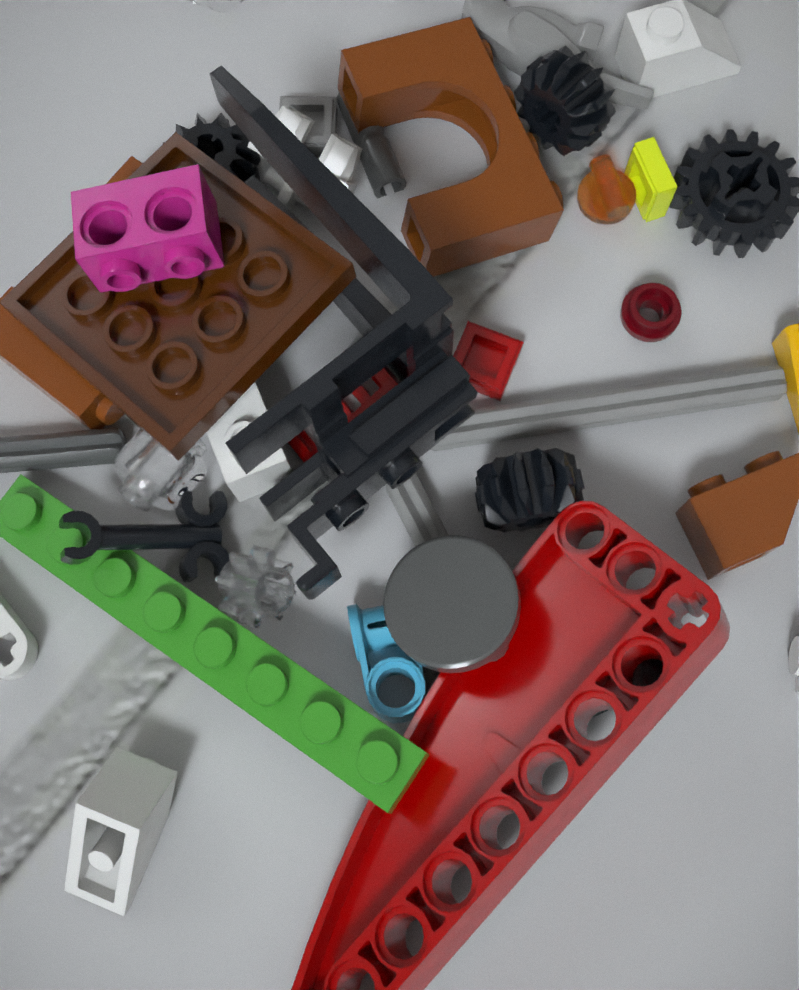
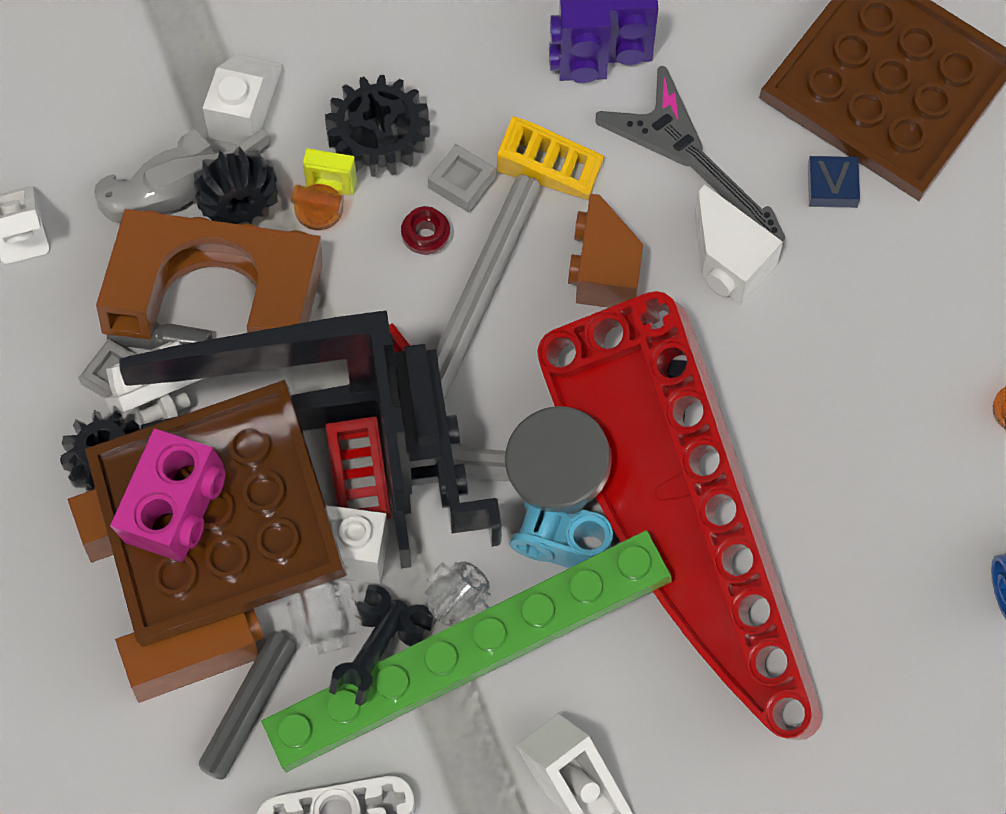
camera: 65 degrees left, 10 degrees down
(527, 489) = (506, 376): black gear -> none
(735, 310) = (461, 177): none -> light grey plate

